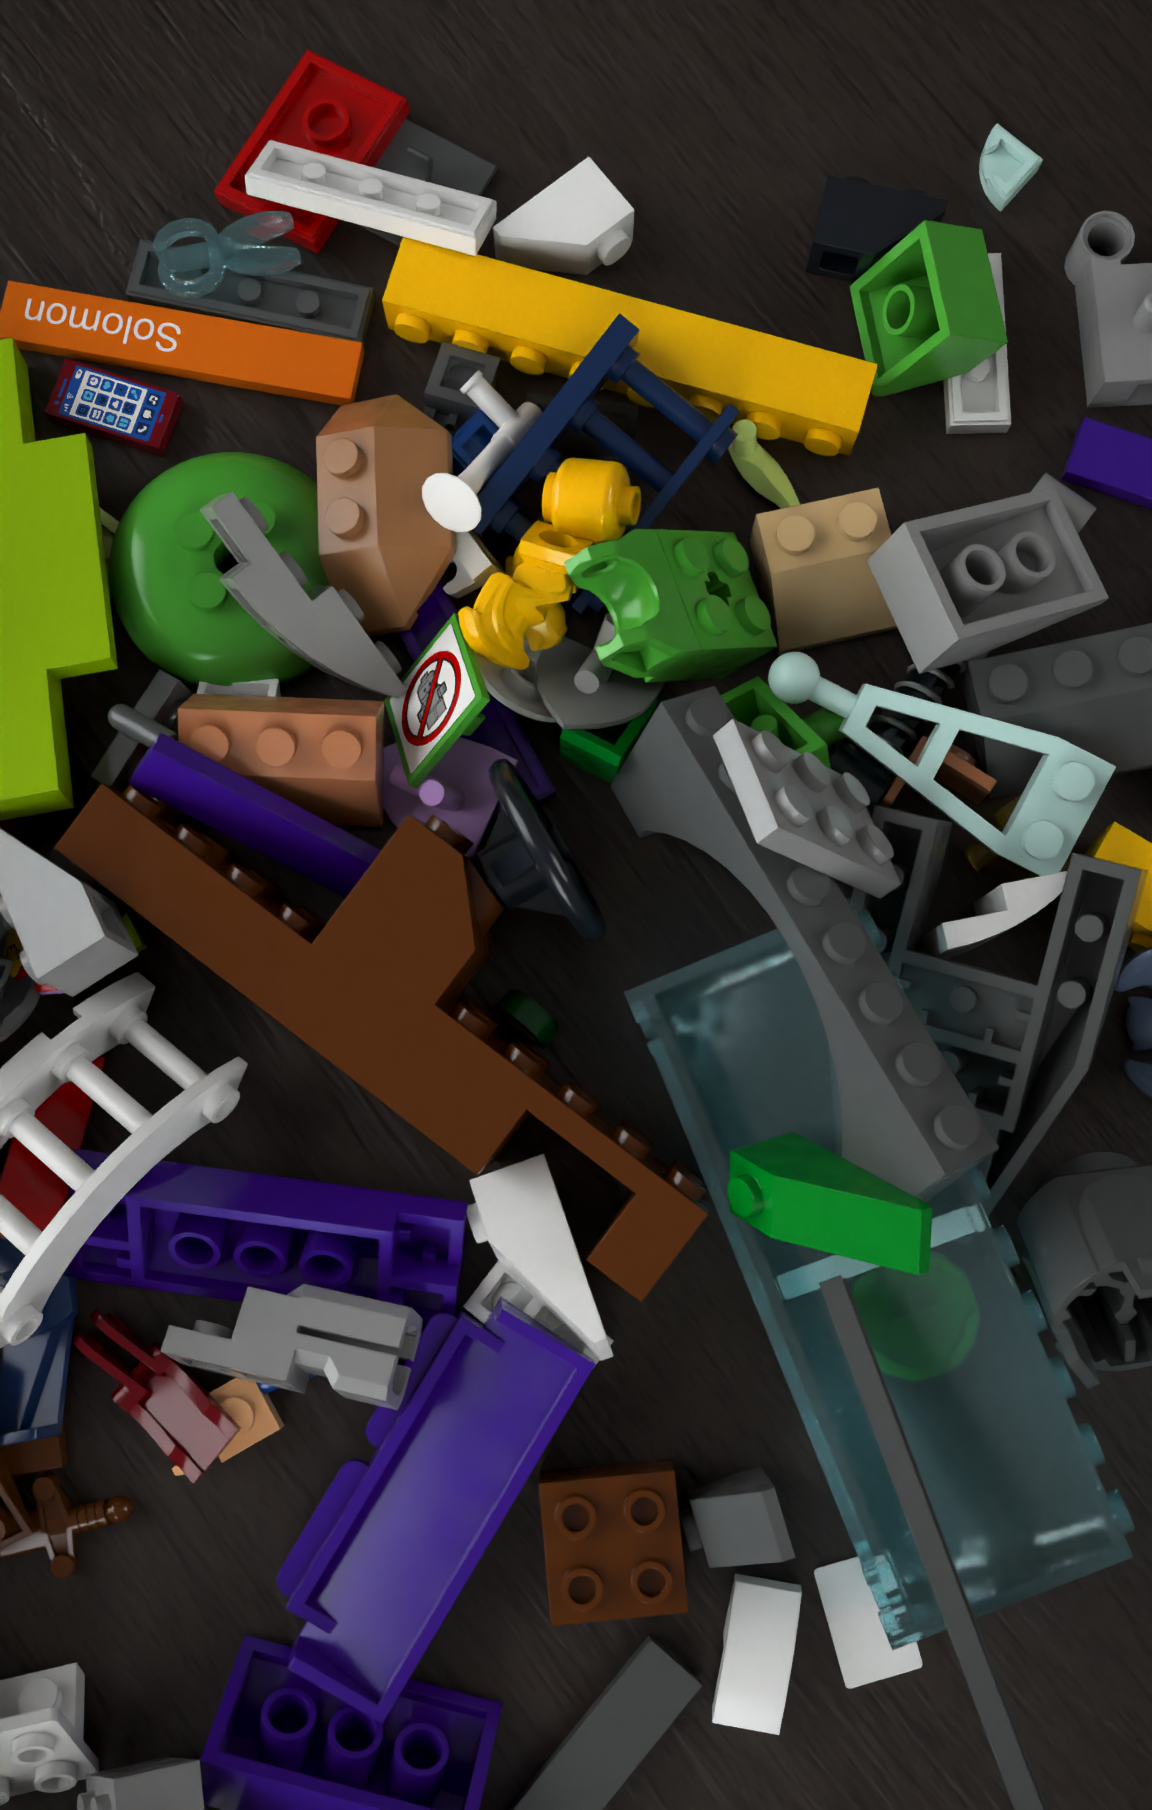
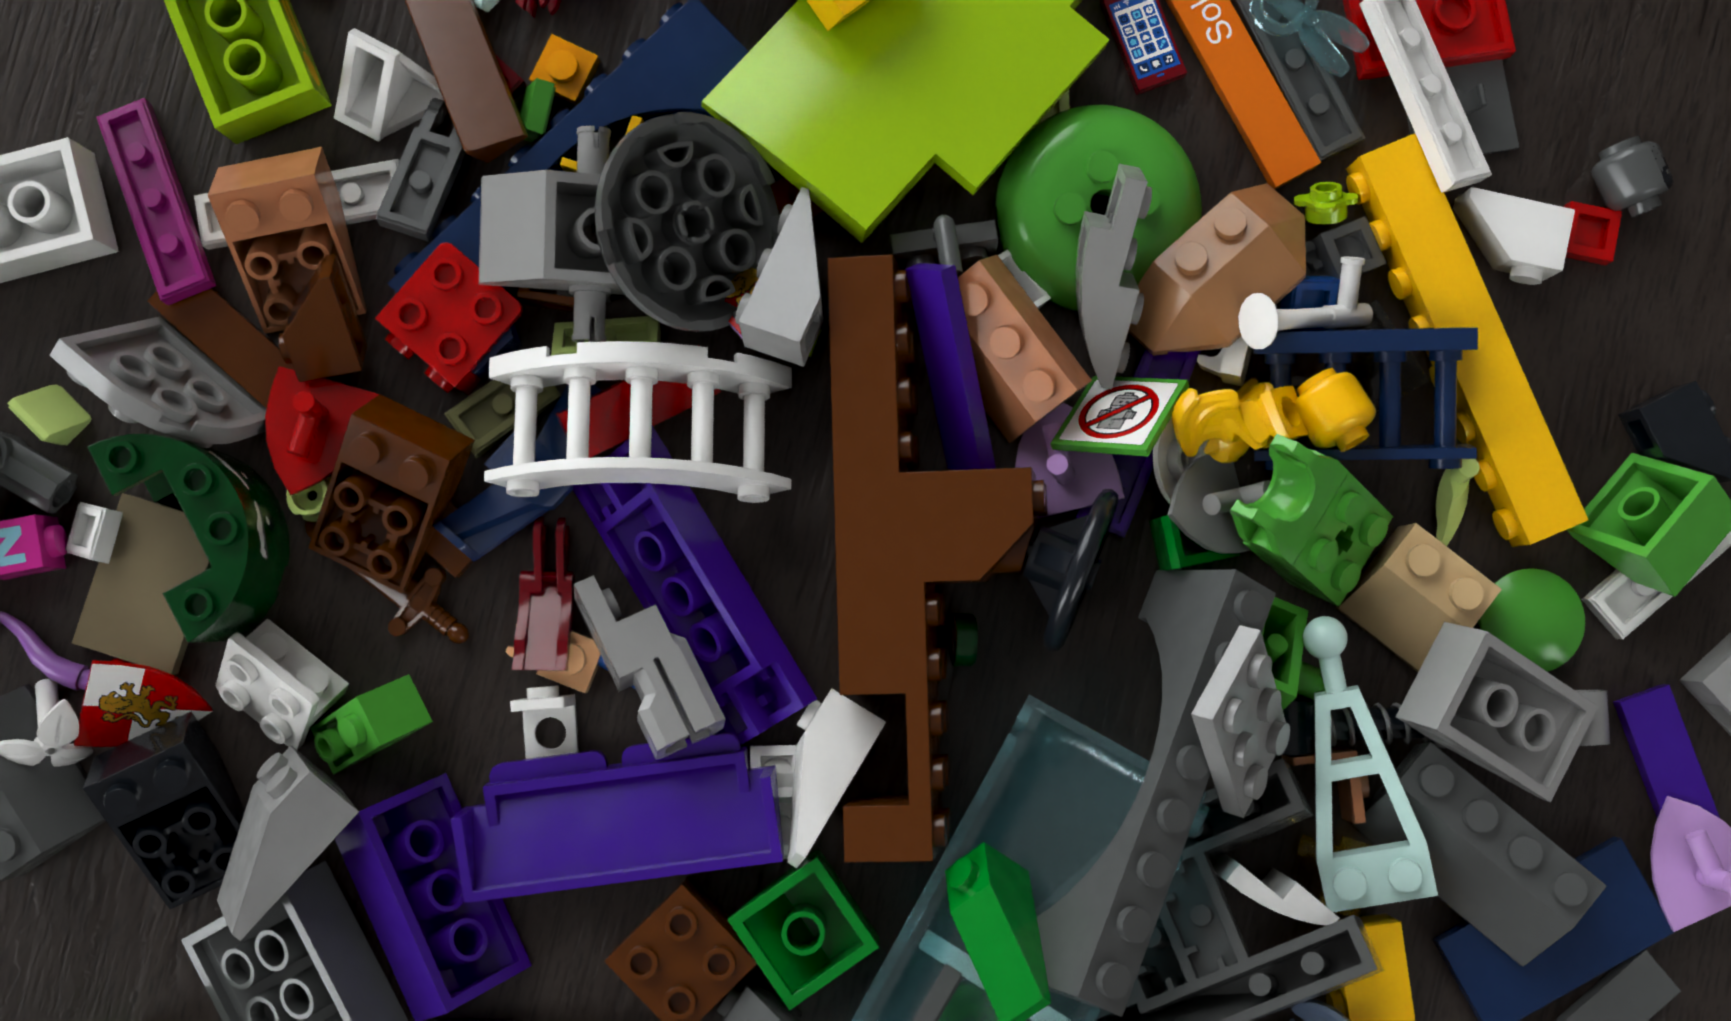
camera: 50 degrees right, 5 degrees up
(131, 1673) = (370, 724): none -> bright green slope
(255, 1485) = (545, 703): none -> white bracket
(402, 366) = (1326, 203): none -> lime plate
(602, 90) = (1632, 176): none -> dark grey head
(627, 163) = (1593, 233): none -> red tile
(680, 1398) = (804, 930): none -> green slope
(929, 476) = (1537, 617): none -> bright green dish

